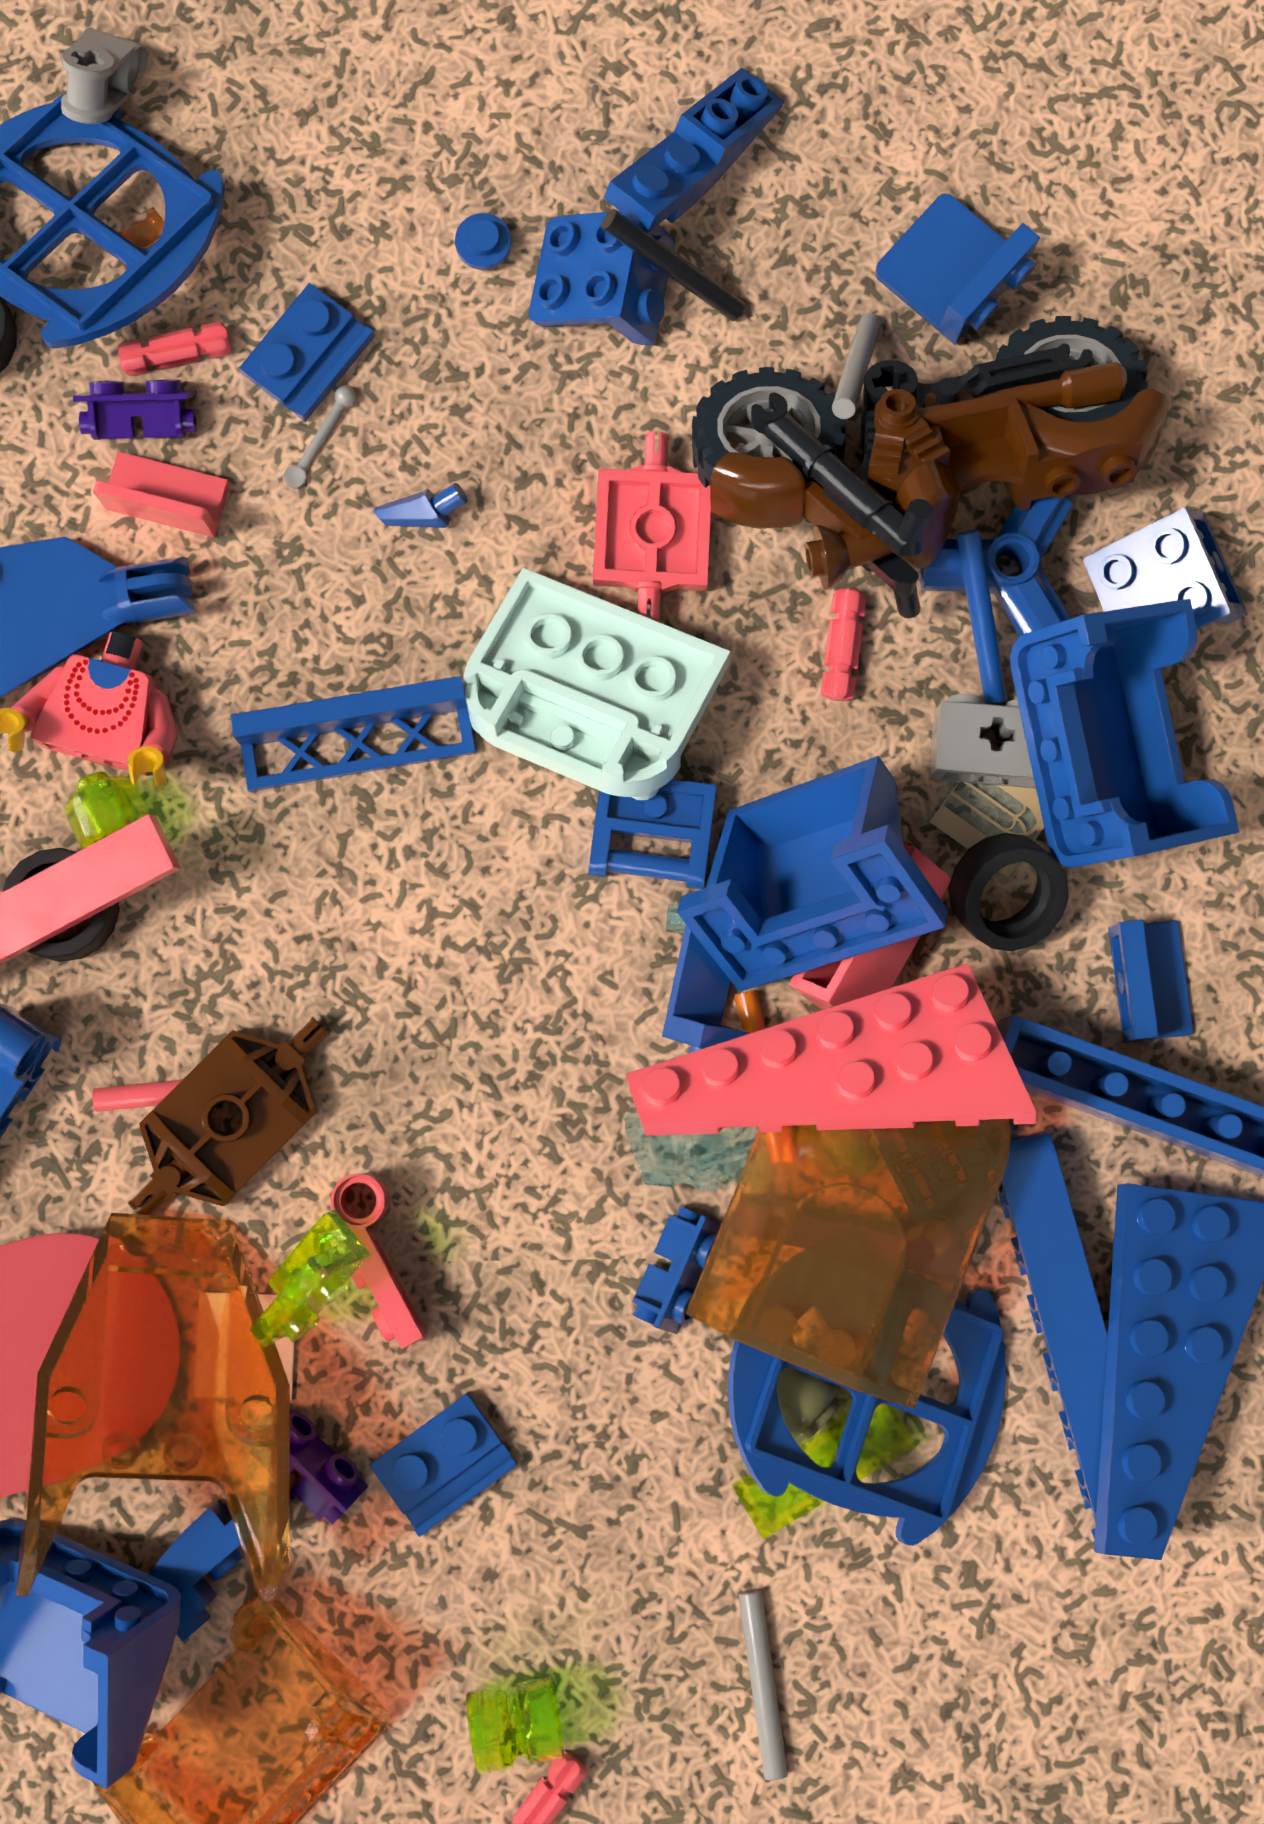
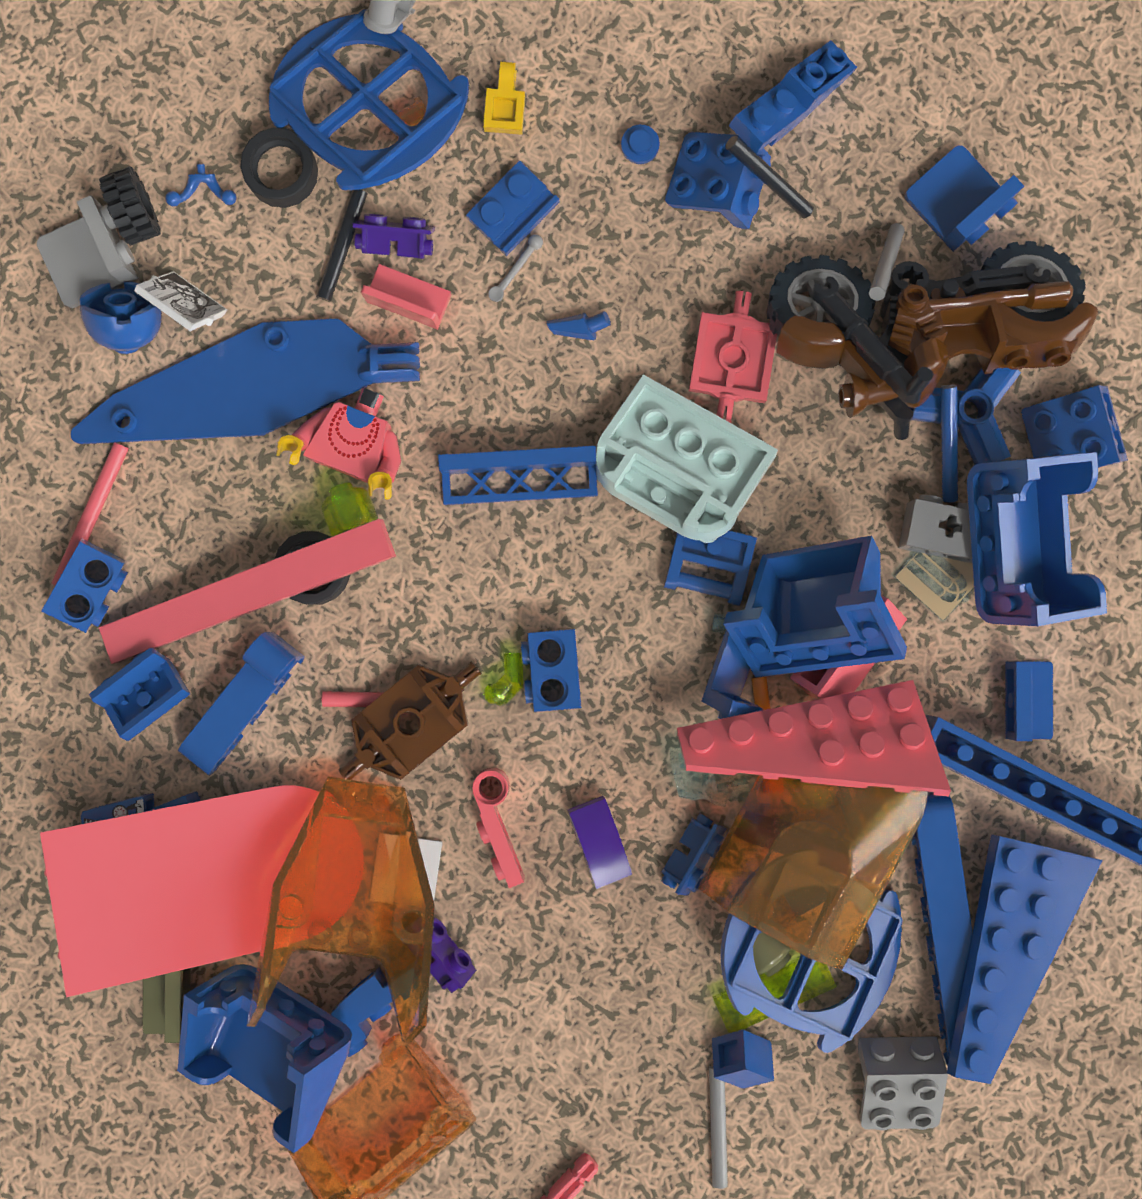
camera: 15 degrees right, 5 degrees up
(61, 431) = (341, 245): none -> black bar
(174, 348) = (423, 196): coral axle -> none
(280, 208) = (505, 105): none -> yellow plate
(310, 1280) = (455, 835): clear neon green bracket -> none
(373, 1043) = (509, 684): none -> clear neon green arm
(443, 1464) = (527, 962): blue plate -> none
(450, 1012) = (563, 669): none -> blue brick
(514, 1725) = (556, 1135): clear neon green wheel -> none
(533, 1266) = (599, 842): none -> dark purple slope
(787, 1573) = (742, 1059): none -> blue panel
(843, 645) = (852, 451): coral axle -> none
(1032, 1582) = (902, 1082): none -> light grey bracket
(1038, 915) = (960, 649): black tyre -> none

